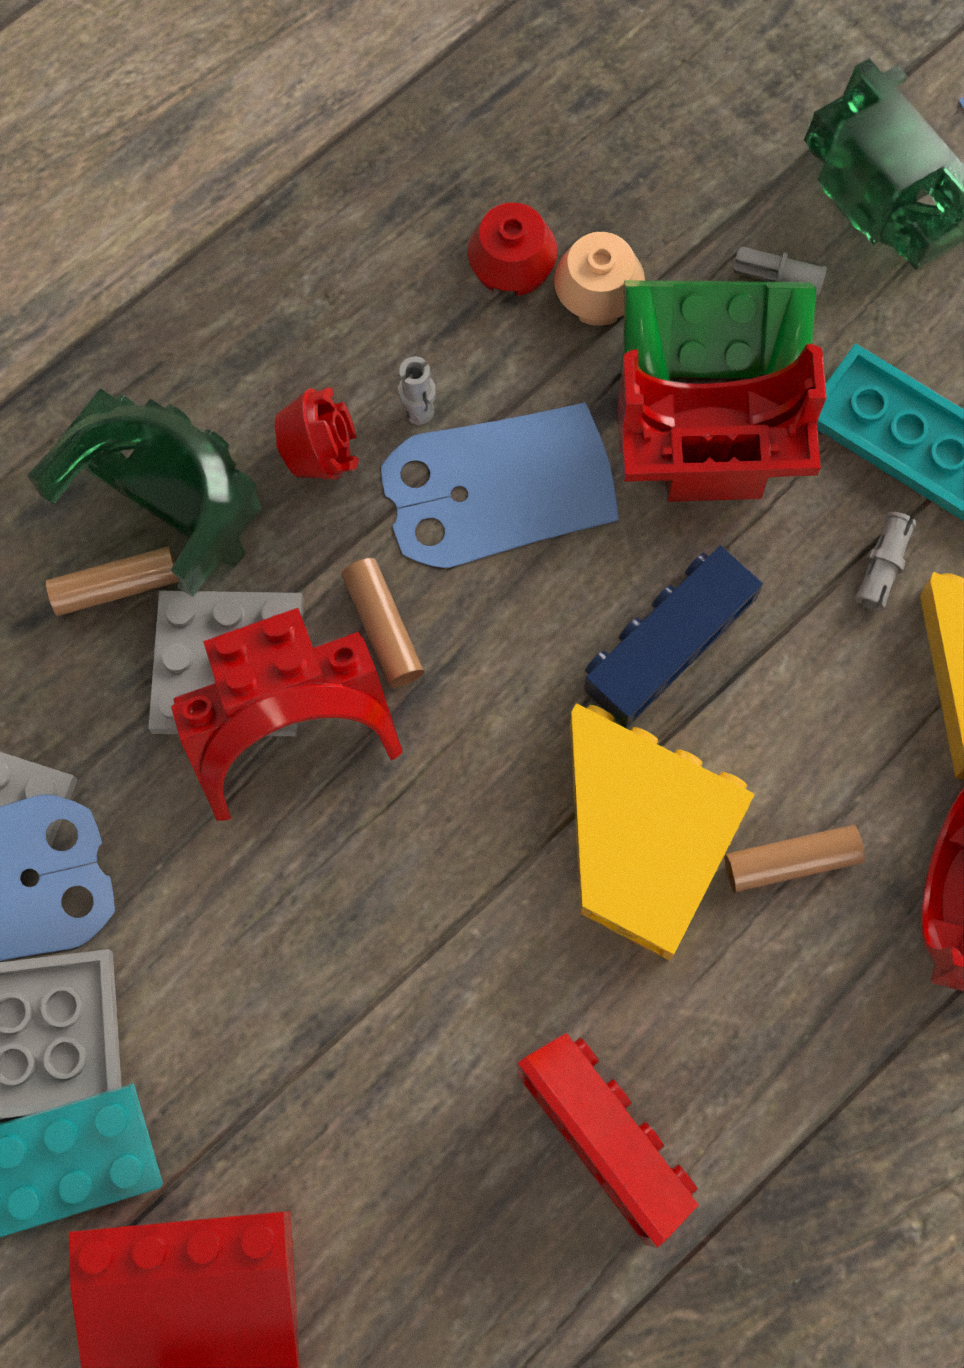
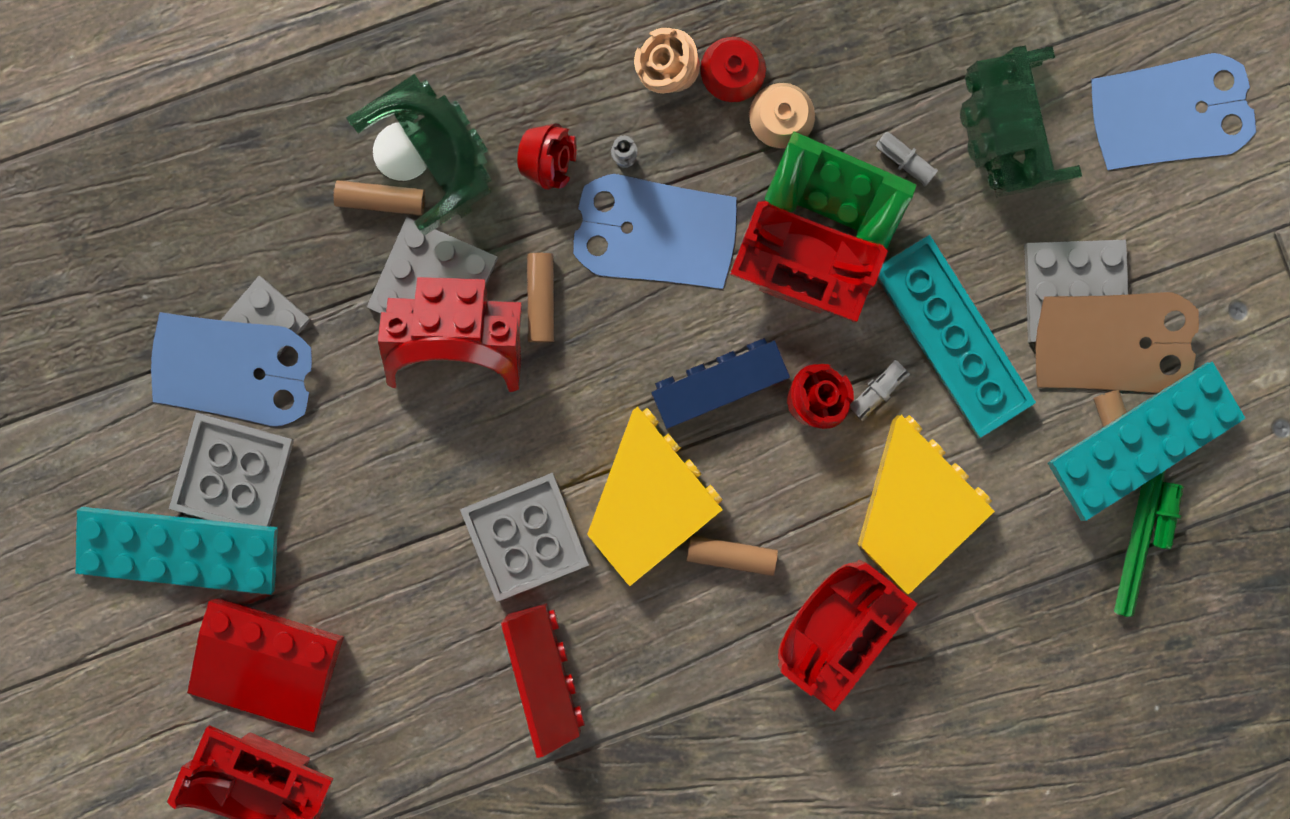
camera: 25 degrees right, 15 degrees up
(117, 523) = (397, 155): none -> white sticker
(426, 264) = (667, 61): none -> light nougat cone
(494, 952) = (524, 537): none -> light grey plate
(813, 594) = (820, 396): none -> red cone

